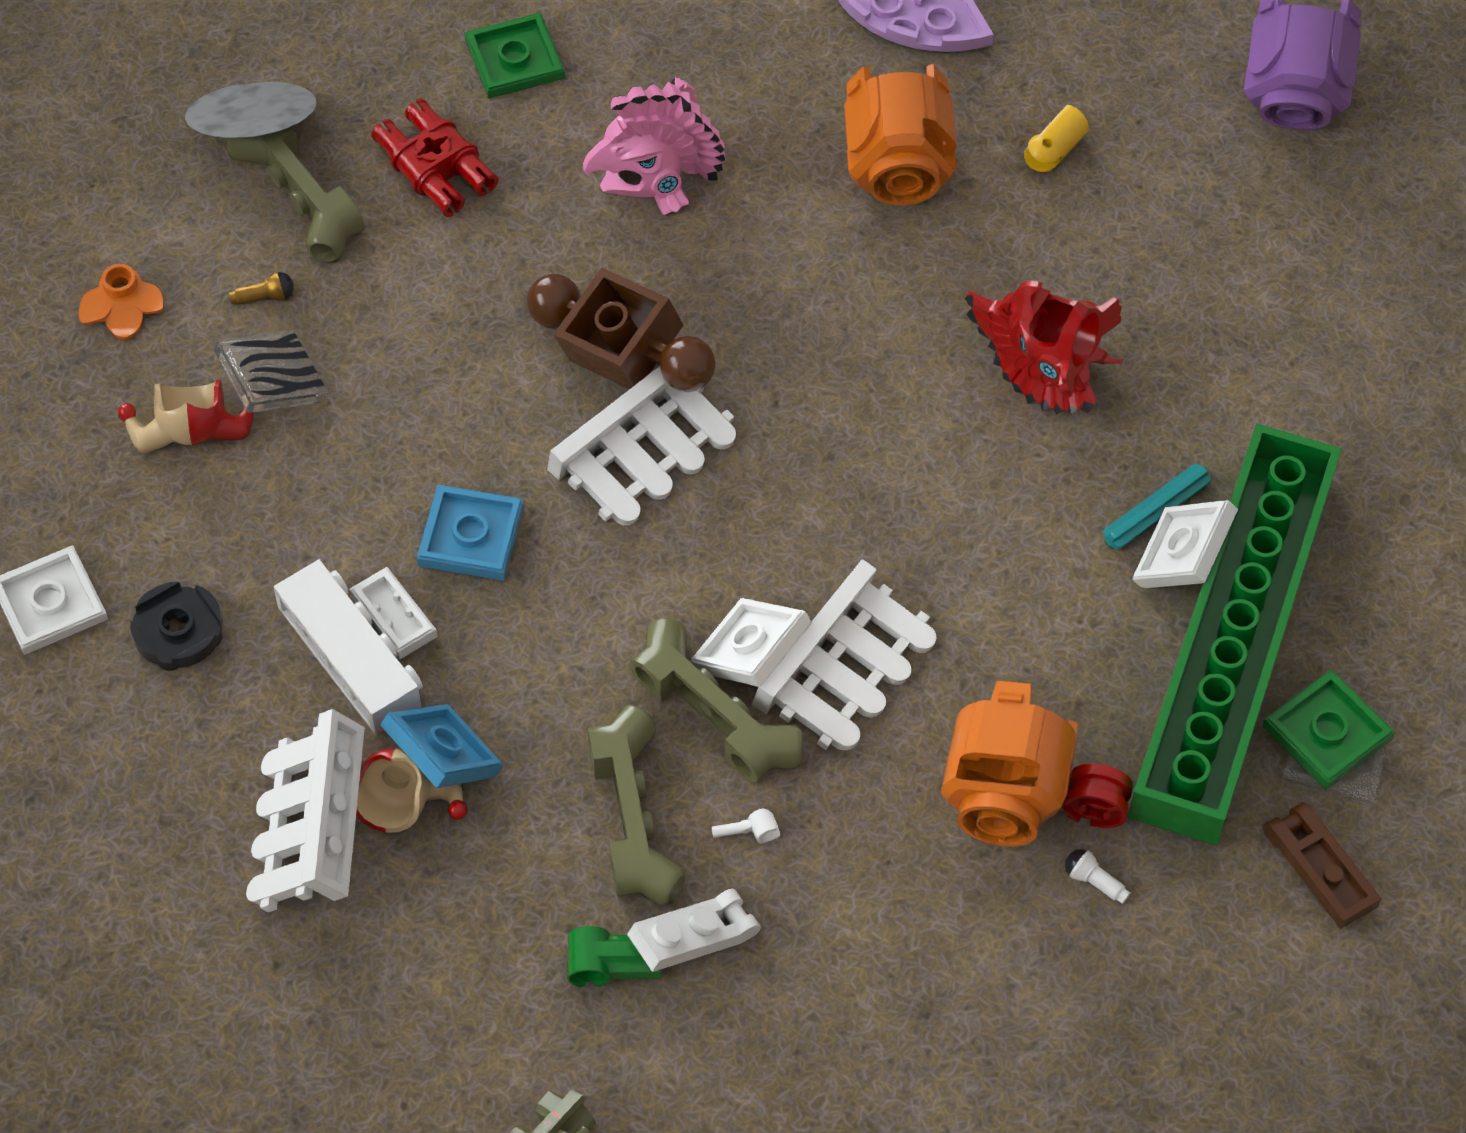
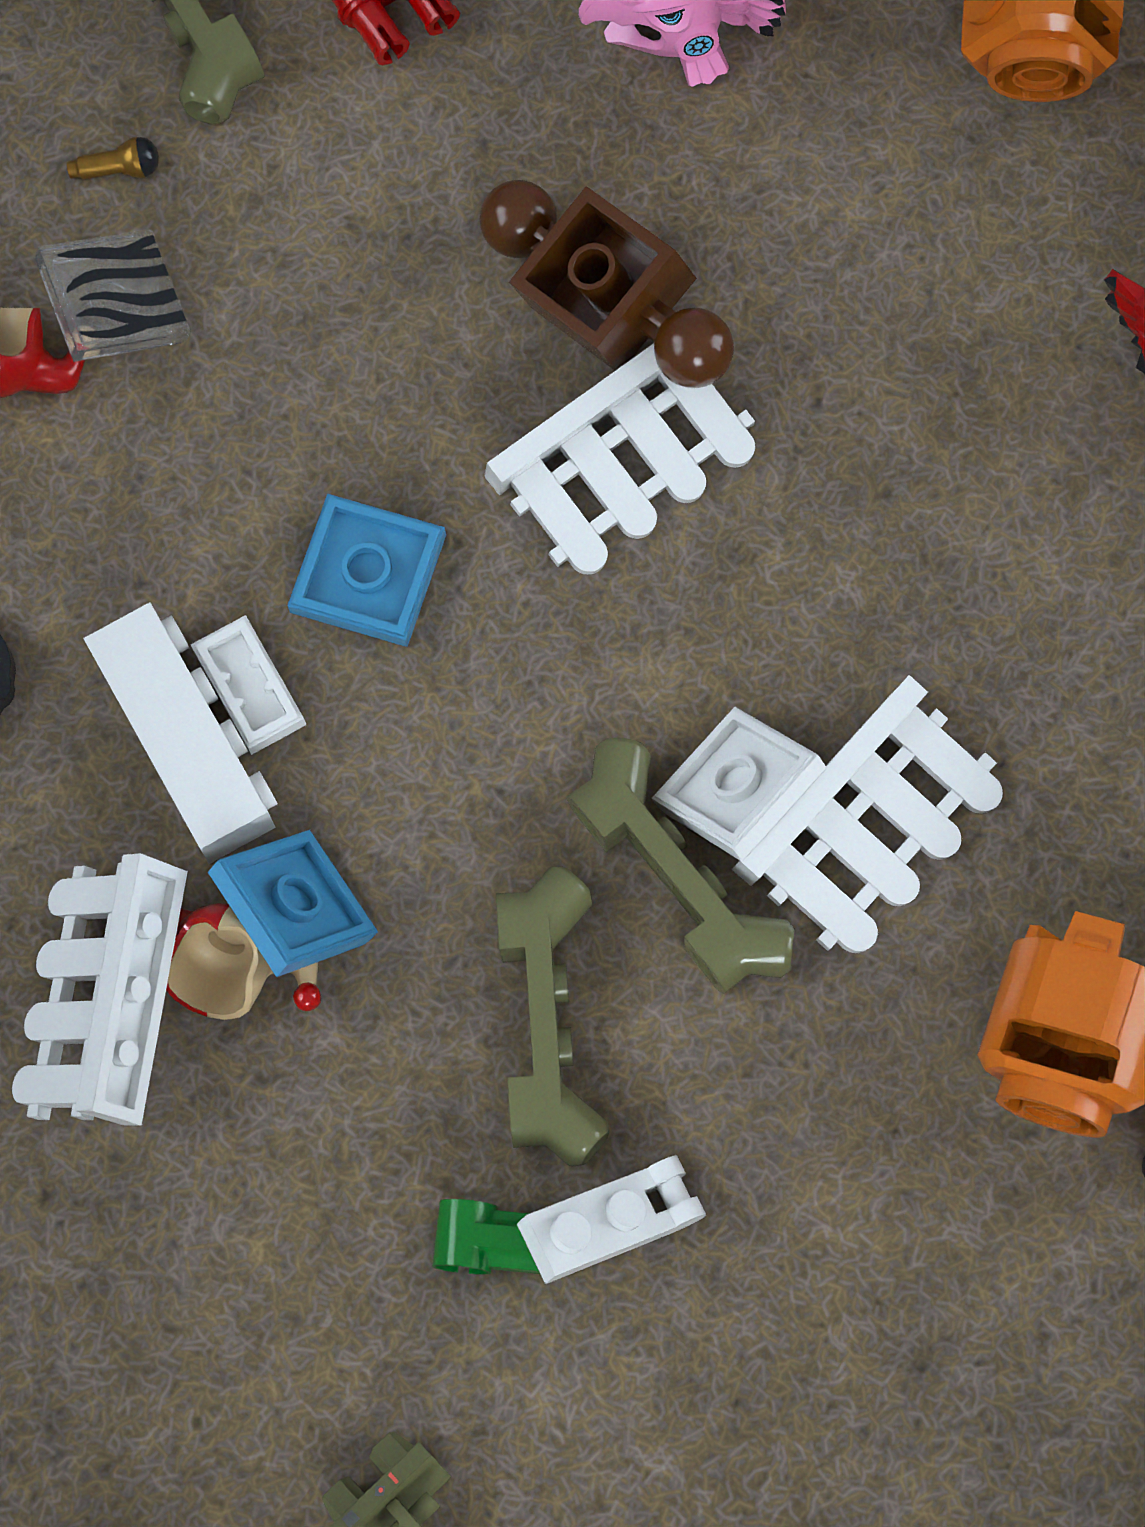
camera: 15 degrees right, 15 degrees up
(760, 822) = (725, 1058): white hand -> none

